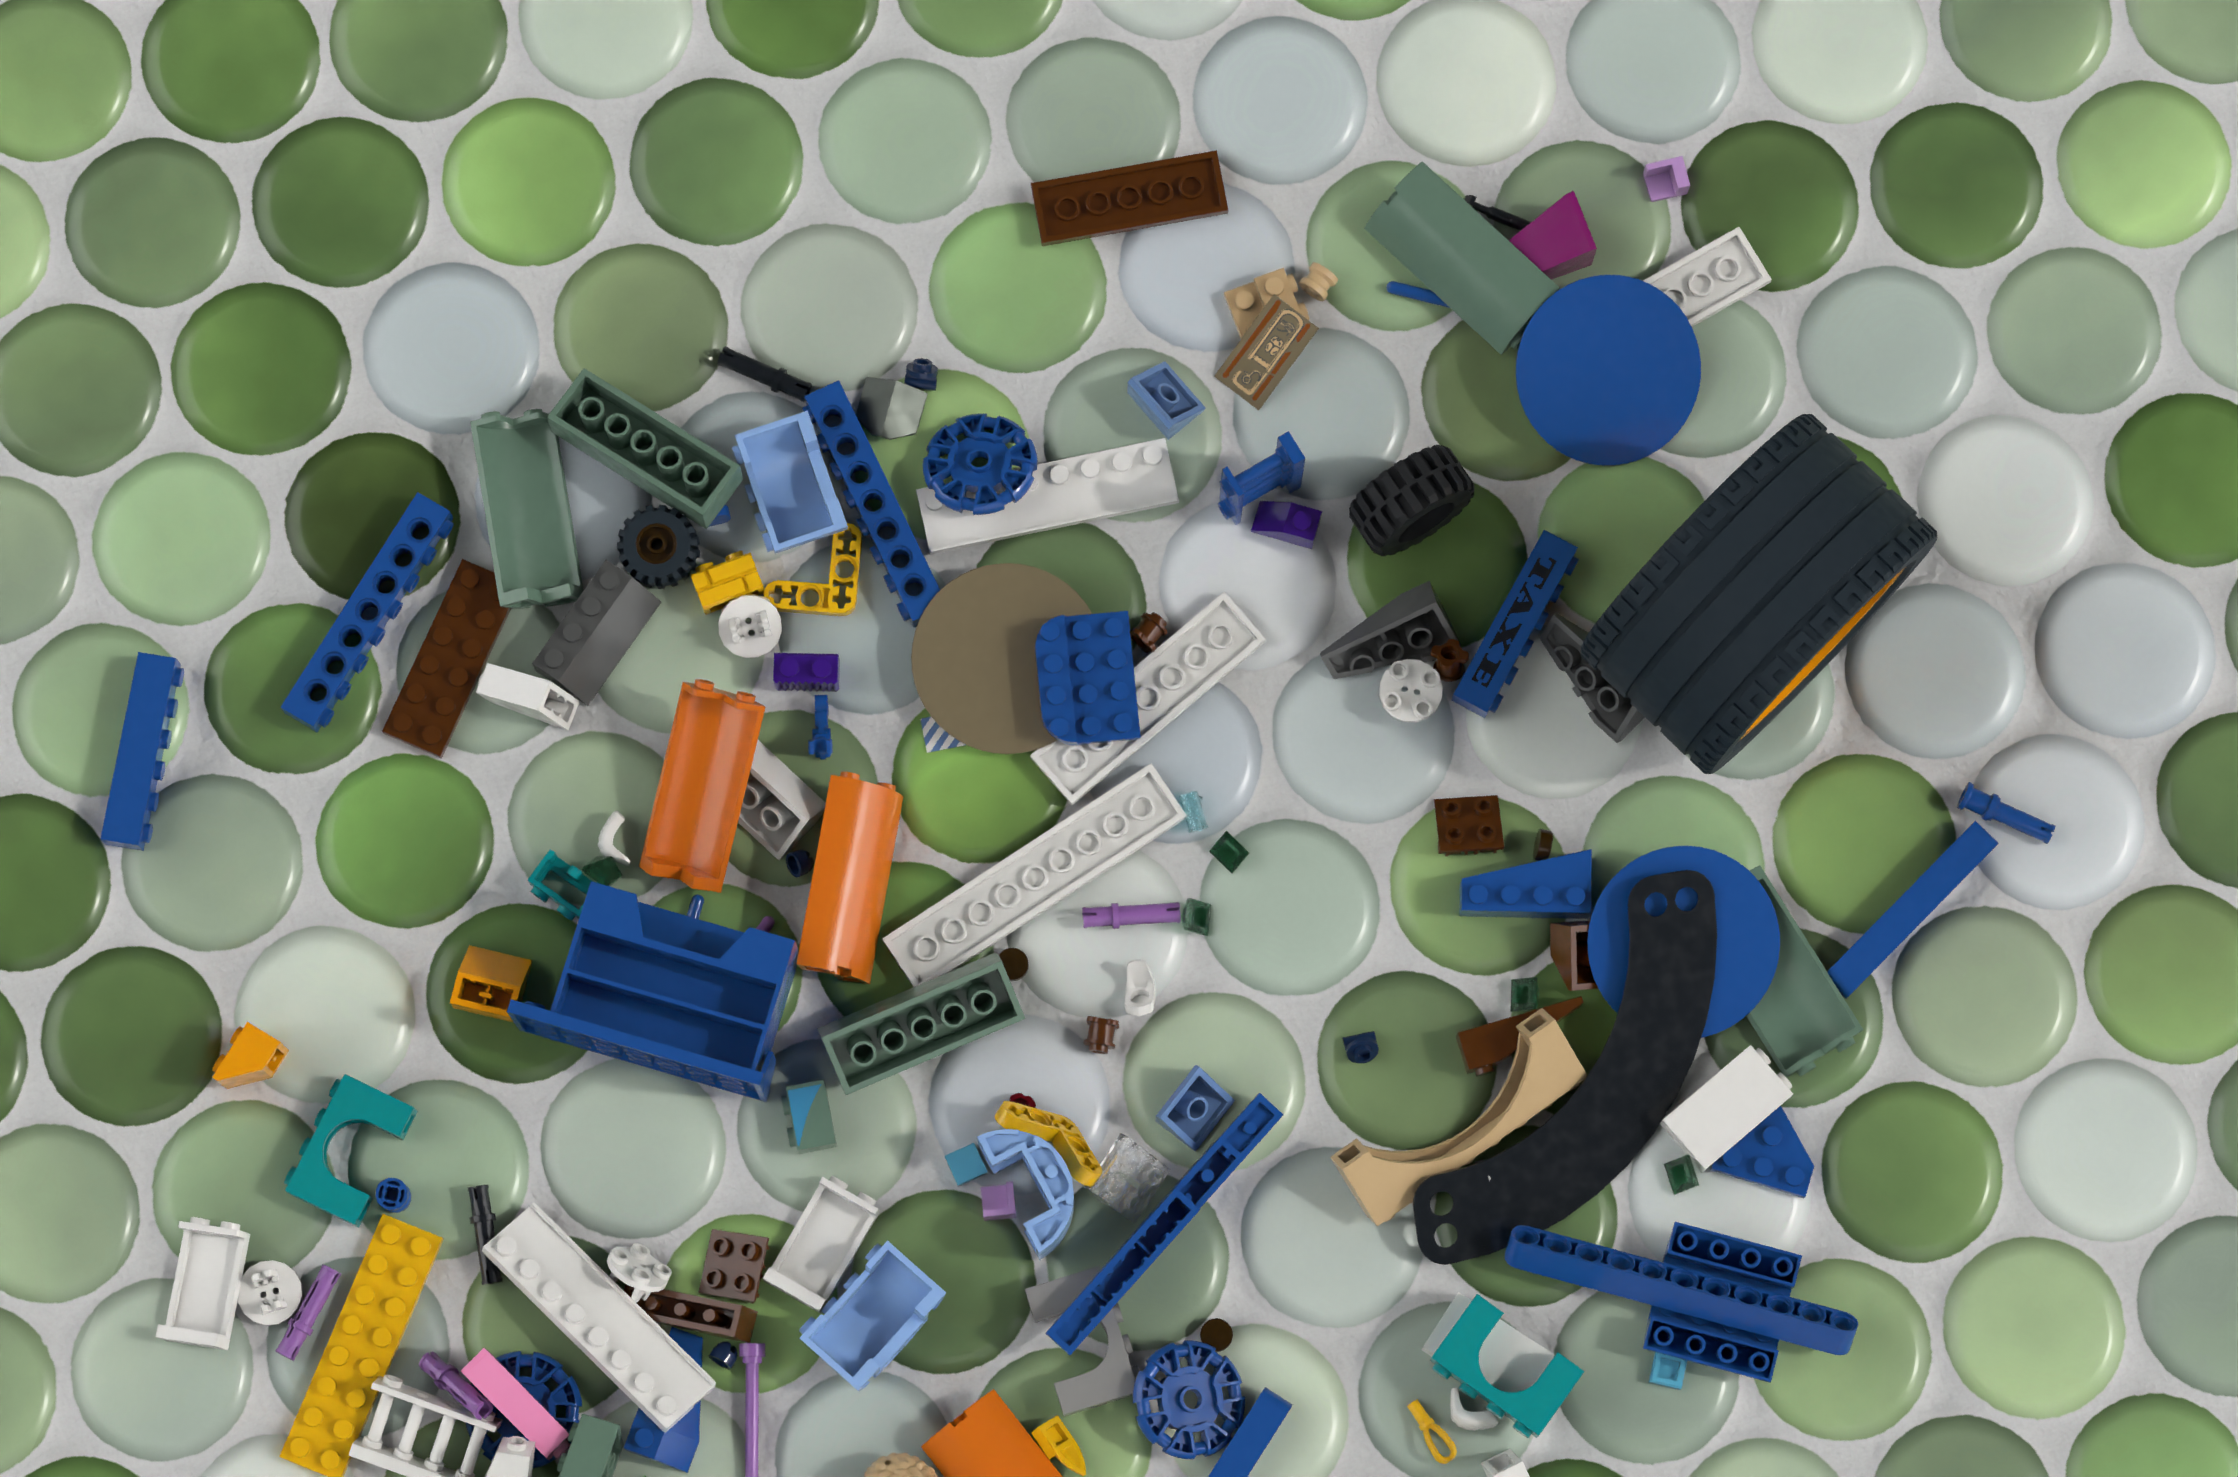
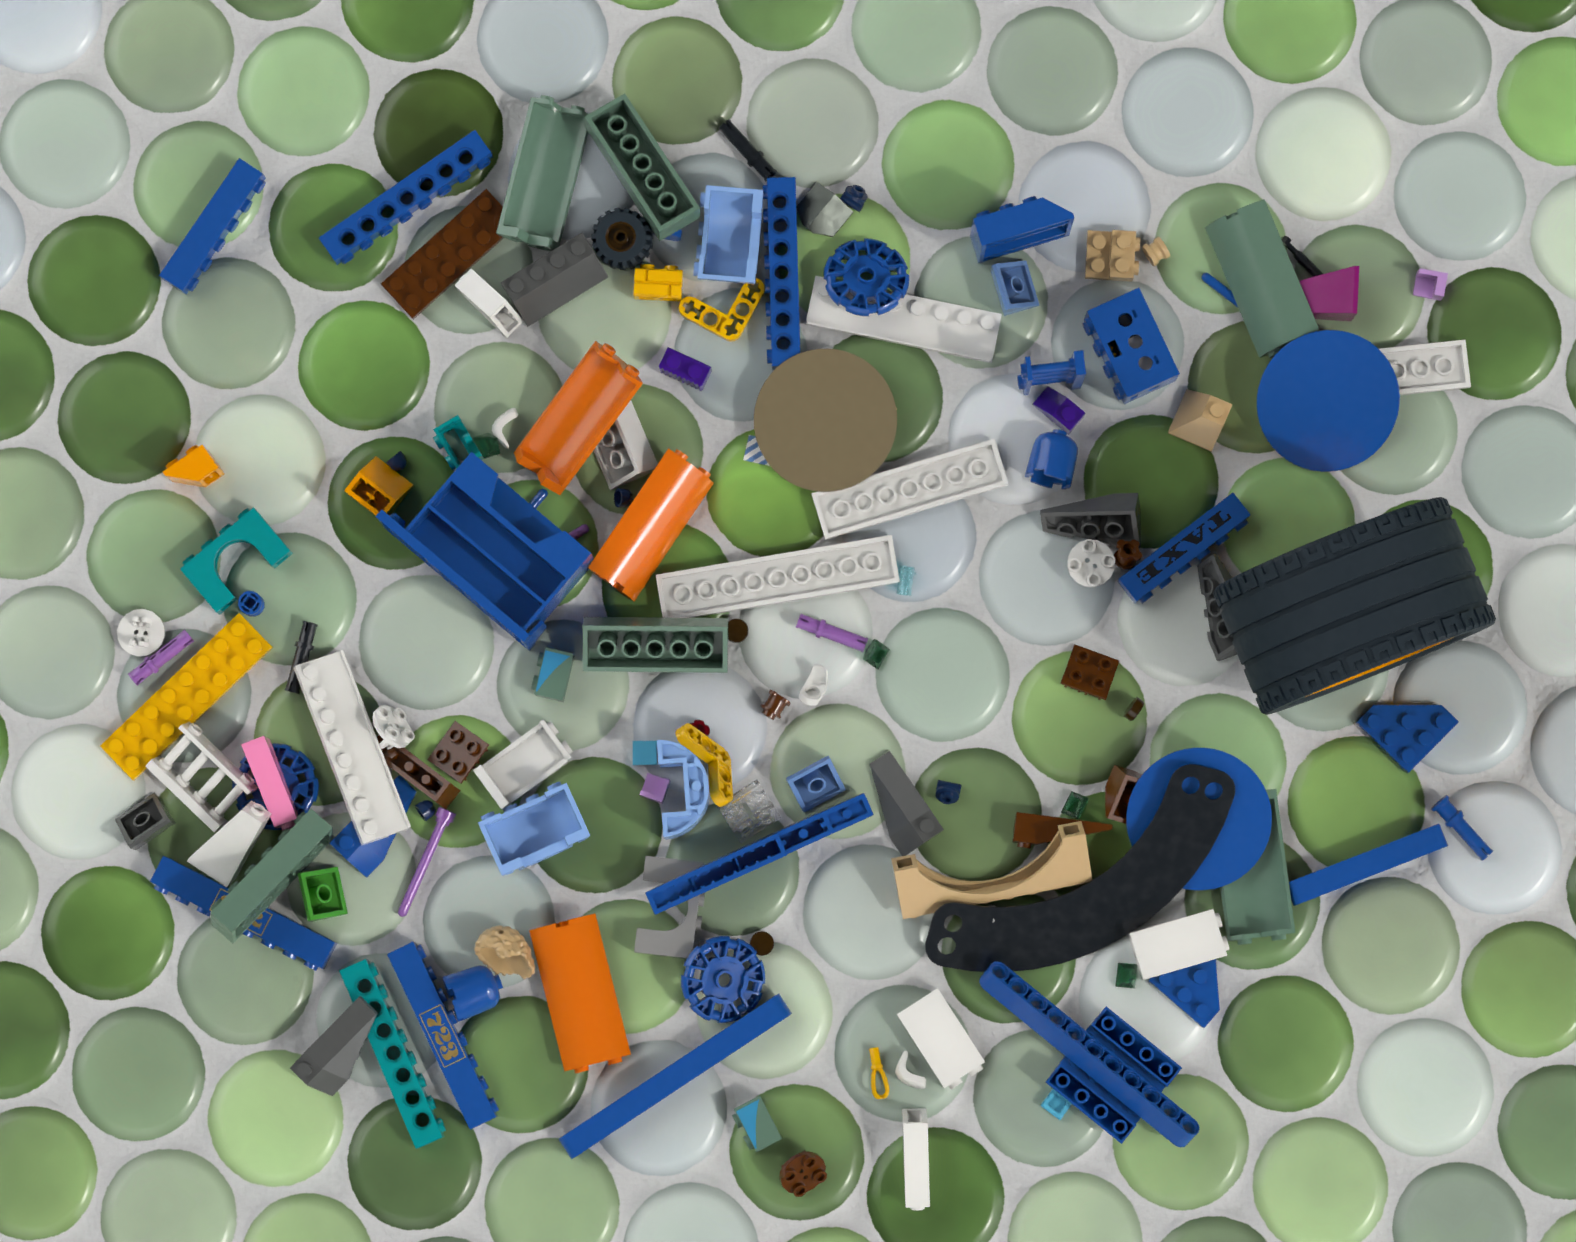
camera: 30 degrees right, 5 degrees up
(206, 1284) = (100, 608): white panel -> none
(447, 1378) = (232, 743): medium lavender pin -> none
(500, 940) = (397, 462): none -> dark blue hinge
(764, 622) = (671, 323): white plate -> none
(821, 739) = (676, 417): blue piece -> none
(1059, 1443) = (623, 968): yellow plate -> none
(1087, 678) = (873, 458): blue plate -> none
(1129, 198) = (1052, 136): reddish brown plate -> none
(1141, 321) = (1018, 227): none -> blue slope
(1148, 631) = (930, 443): reddish brown brick -> none
(1229, 852) = (918, 619): clear green slope -> none
(1266, 352) = (1097, 284): sticker -> none
(1307, 586) = (1052, 460): none -> blue cylinder
(1318, 1092) = (904, 810): none -> dark grey wedge
(1340, 407) = (1137, 353): none -> blue piece
(1411, 500) = (1149, 433): black tyre -> none
(1475, 450) = (1200, 419): none -> tan slope
(1527, 1408) = (949, 1088): teal arch -> none
(1532, 890) = (1112, 736): blue wedge -> none
(1884, 726) = (1407, 730): none -> blue plate

